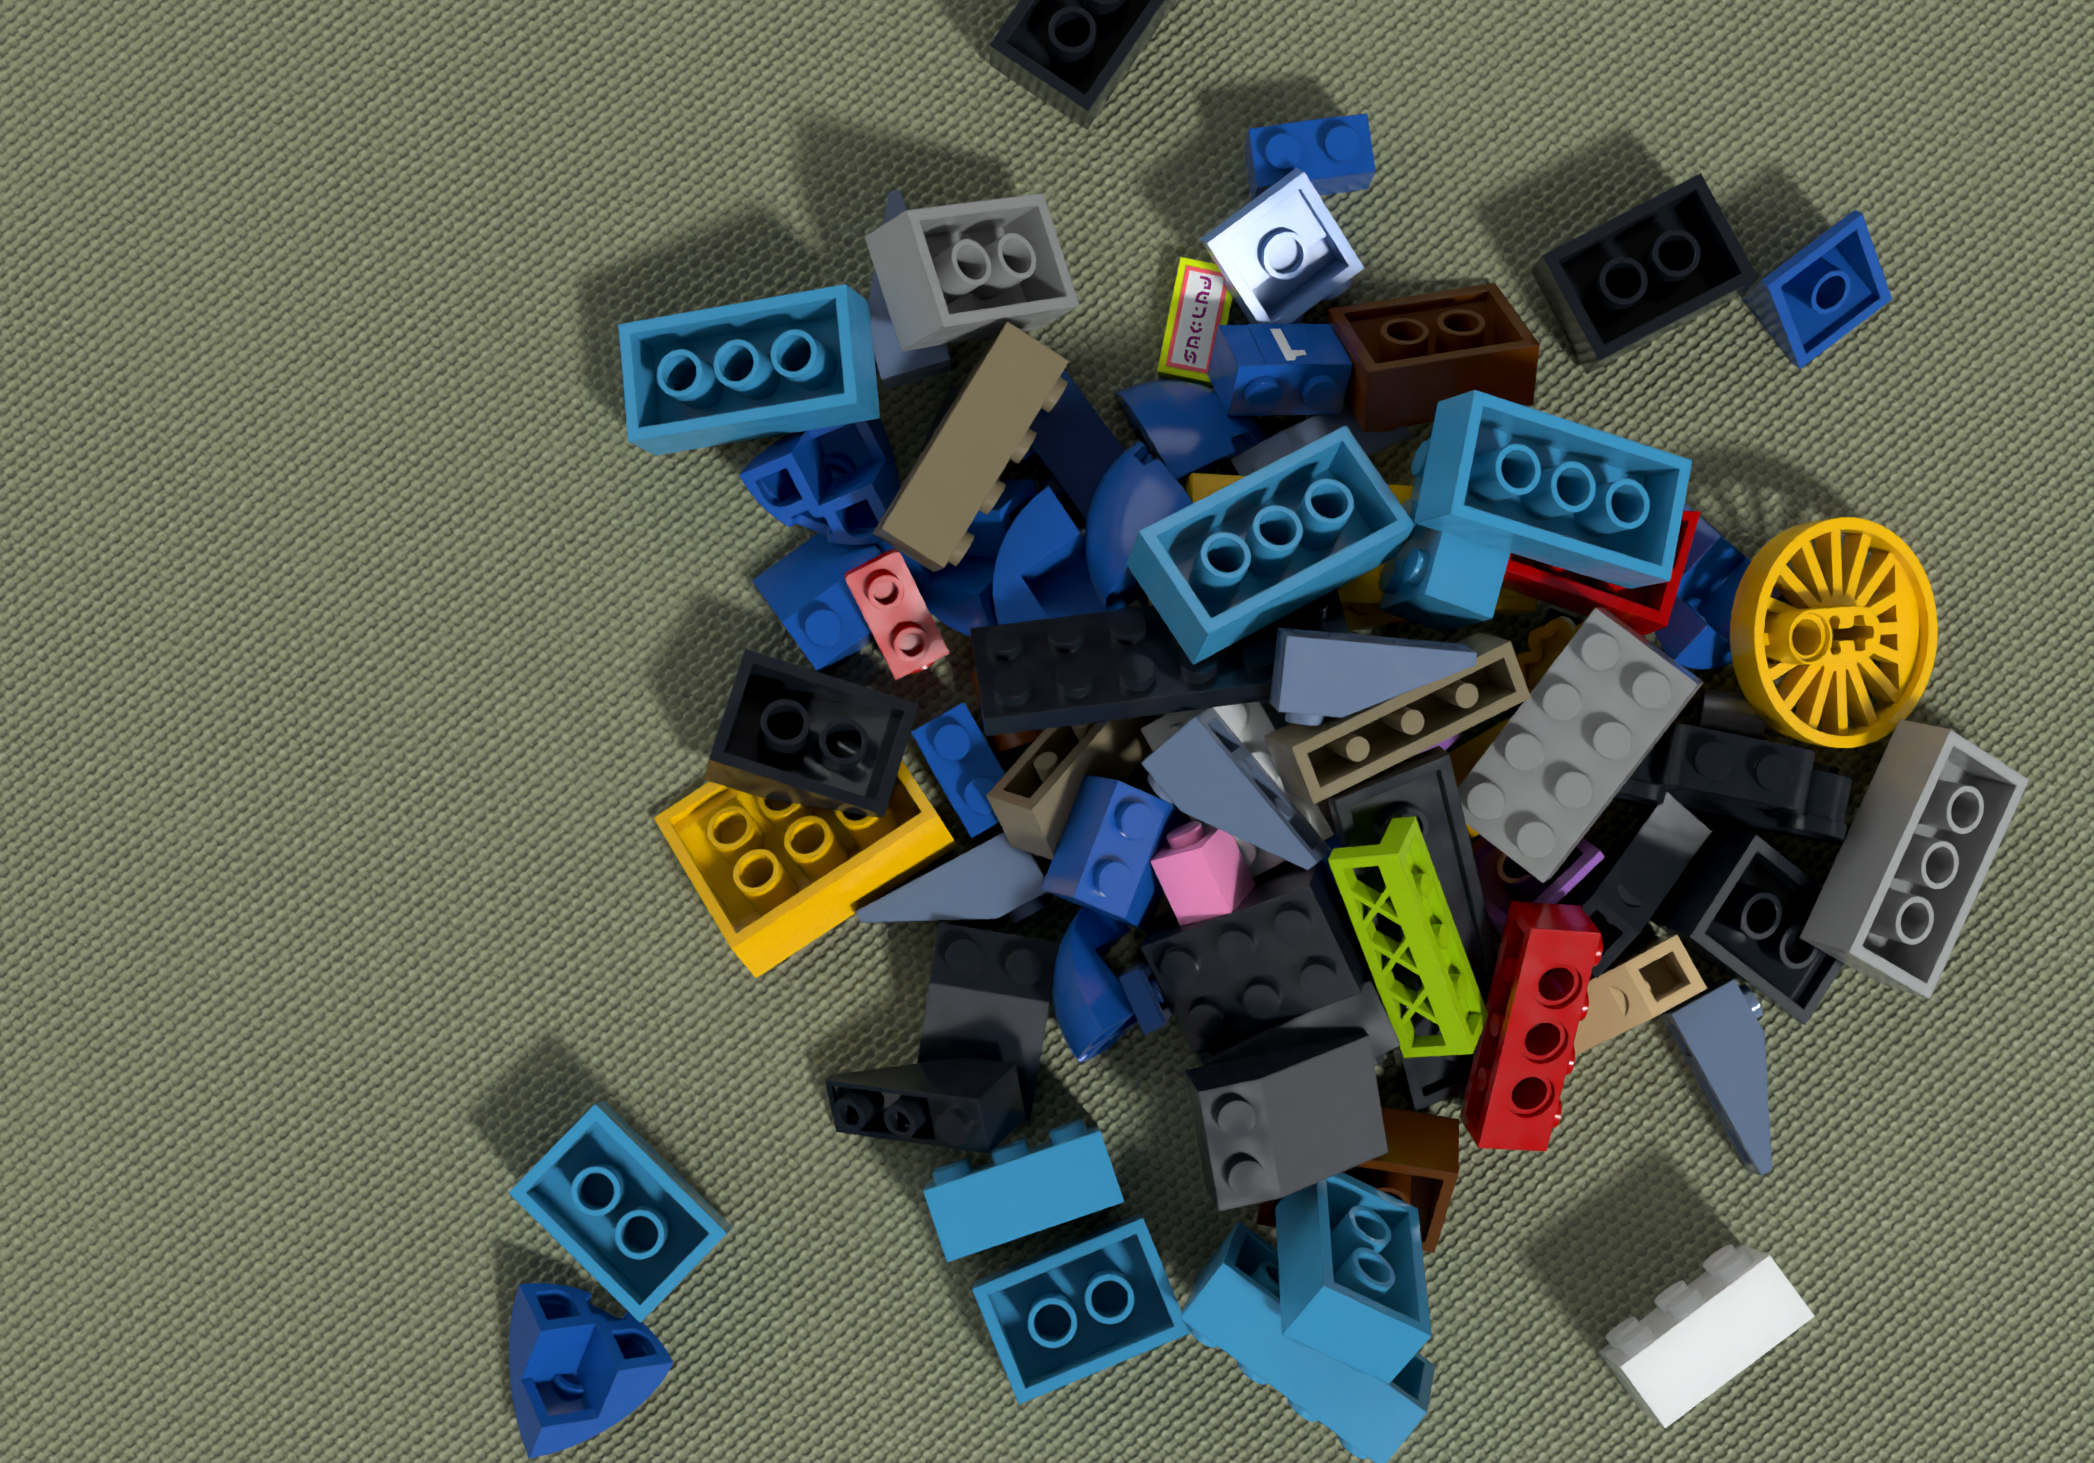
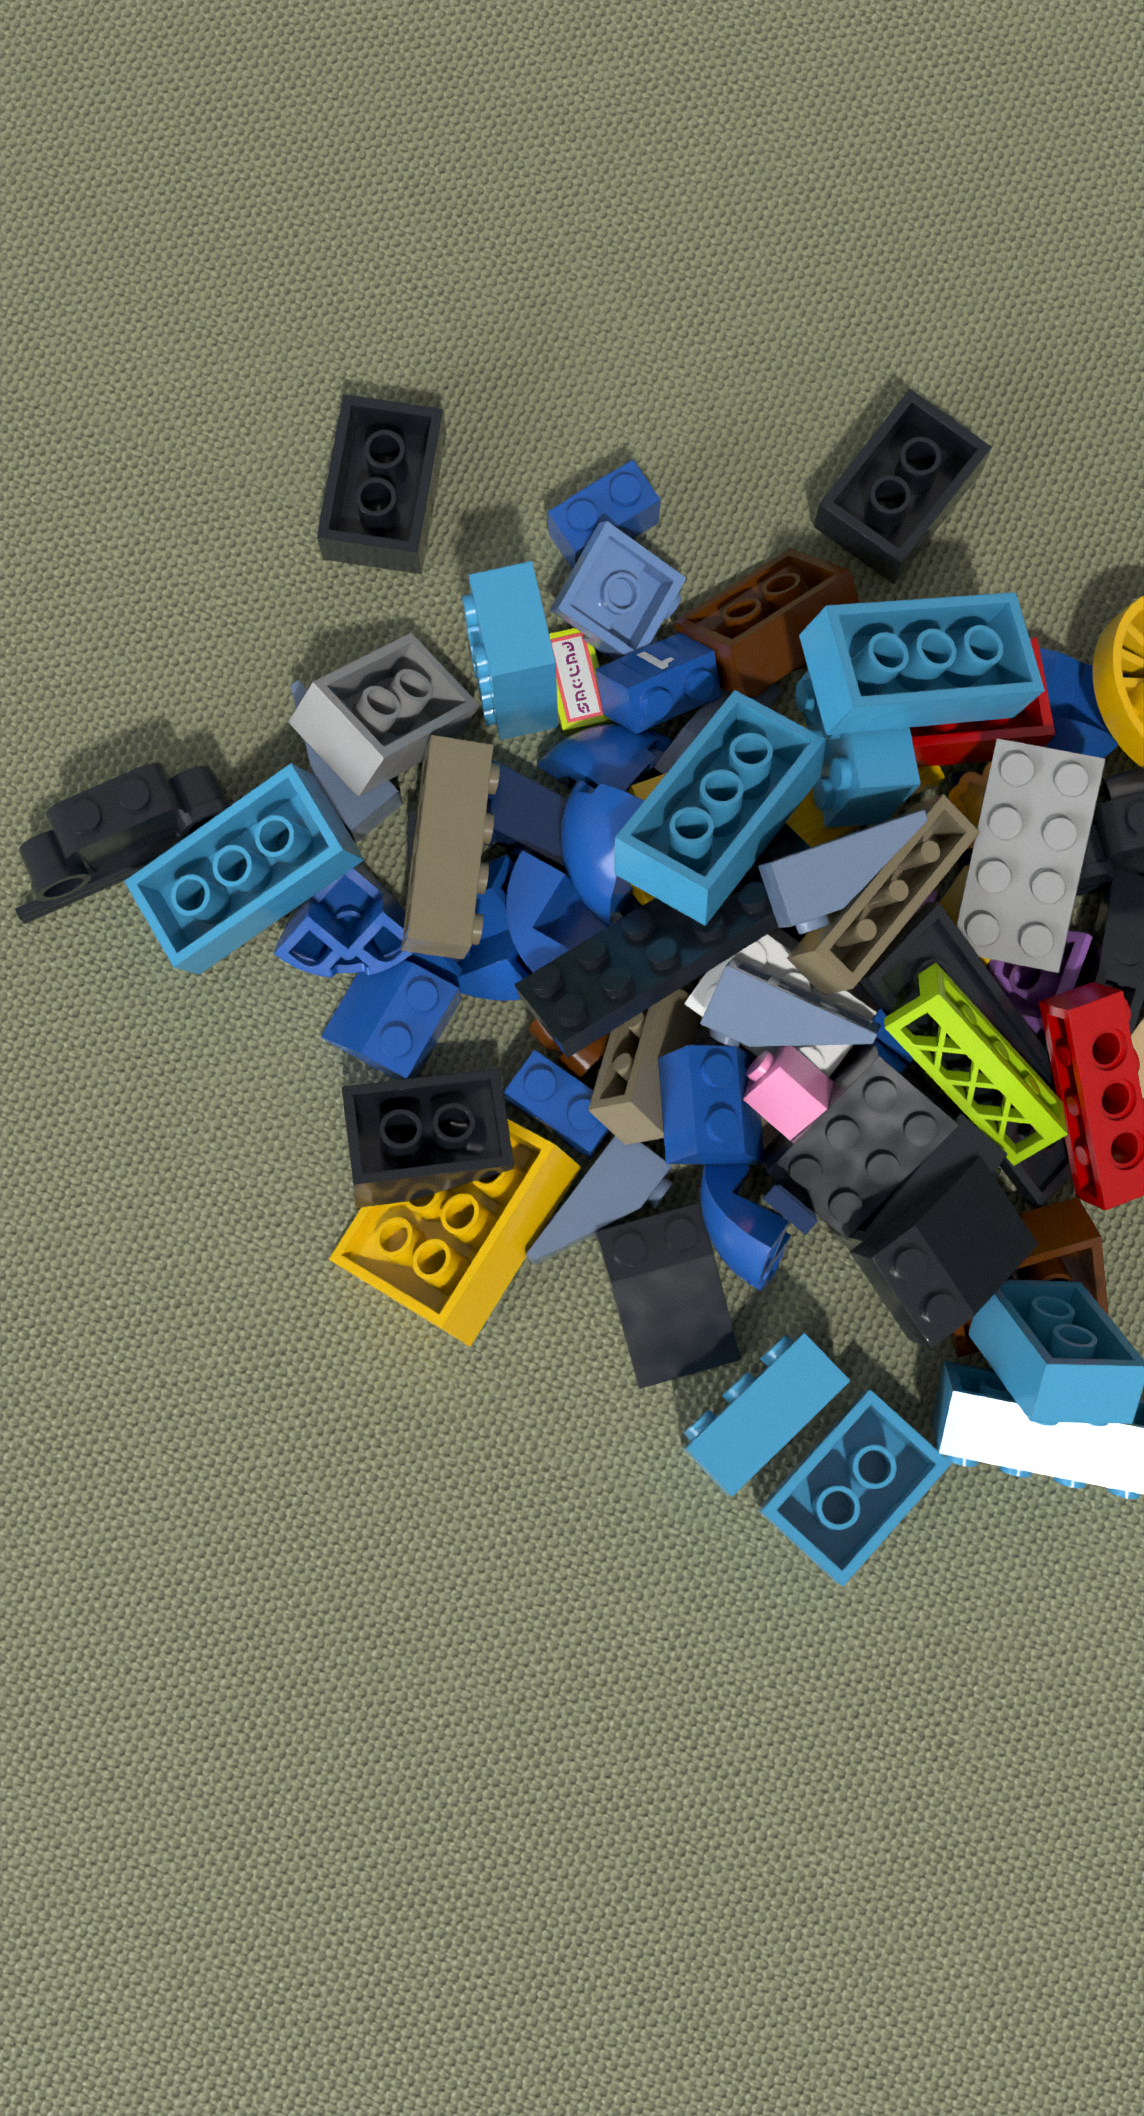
camera: 20 degrees left, 5 degrees down
(576, 1366) = (470, 1729): blue brick -> none
(621, 1210) = (448, 1583): dark azure brick -> none
(637, 269) = (115, 832): none -> black brick
(896, 614) = (449, 1005): bracket -> none
(932, 1103) = (655, 1380): black slope -> none
(1132, 268) = (511, 650): none -> dark azure brick
(1821, 291) = (1041, 440): blue slope -> none

